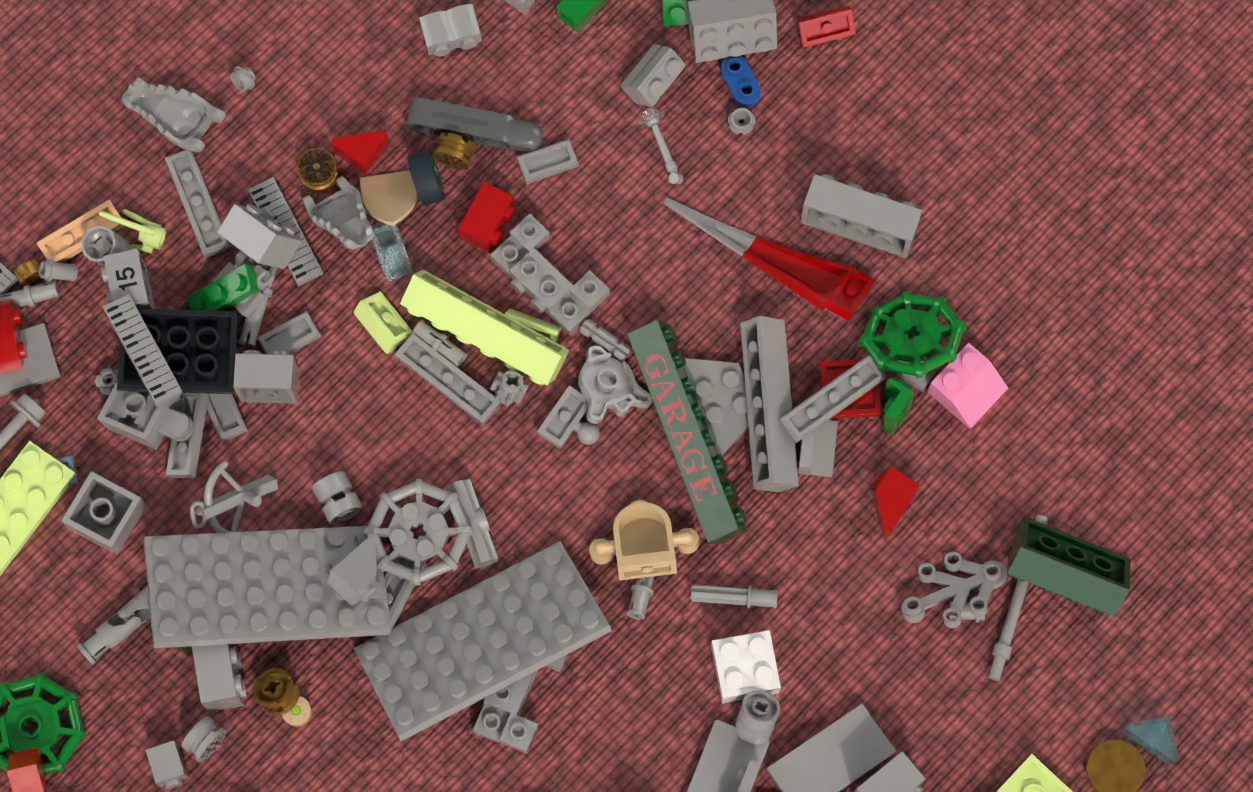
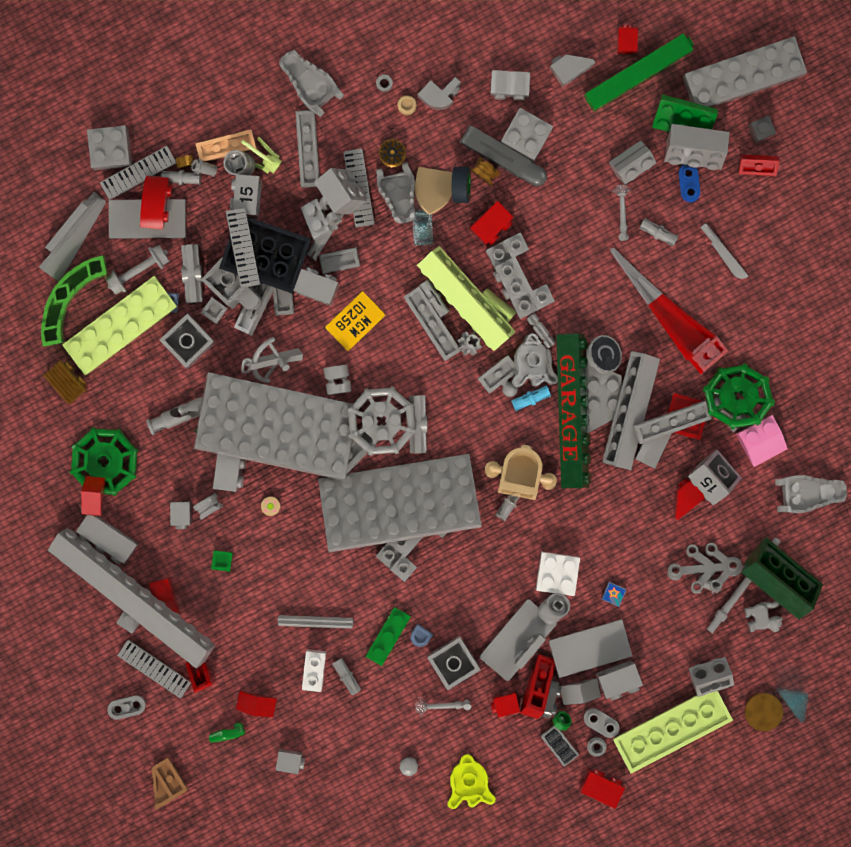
camera: 20 degrees right, 15 degrees up
(83, 420) = (192, 273): none -> light grey piece
(101, 380) = (210, 251): light grey plate -> none
(130, 461) = (214, 310): none -> light grey plate
(226, 291) = (306, 221): green plate -> none
(243, 78) = (363, 72): light grey plate -> none
(277, 75) = (382, 89): none -> light grey axle
(285, 692) = (261, 491): pearl gold wheel -> none
(317, 103) = (407, 105): none -> tan tile
(337, 413) = (355, 321): none -> yellow sticker
(356, 573) = (334, 438): light grey slope -> none
(357, 79) = (437, 98): none -> light grey brick
(361, 149) = (425, 149): red slope -> none
(382, 322) = (403, 270): yellowish green slope -> none
(496, 83) = (526, 134): none -> light grey brick
(547, 161) = (544, 196): light grey tile -> none
(622, 435) = (531, 398): none -> medium azure pin
(703, 340) = (604, 354): none -> black tile
(722, 156) = (658, 232): none -> light grey pin
(734, 595) = (566, 525): light grey axle -> none
(741, 114) = (685, 211): light grey plate -> none
(829, 161) = (730, 261): none -> light grey piece
(837, 672) = (613, 594): none -> tile
(860, 215) = (734, 306): light grey brick -> none
(898, 405) = (709, 442): green bracket -> none
(920, 454) = (714, 477): none -> light grey brick
(1021, 740) = (710, 675): none -> light grey brick
(1059, 436) = (807, 493): none -> light grey animal
(1060, 633) = (761, 618): none -> light grey animal

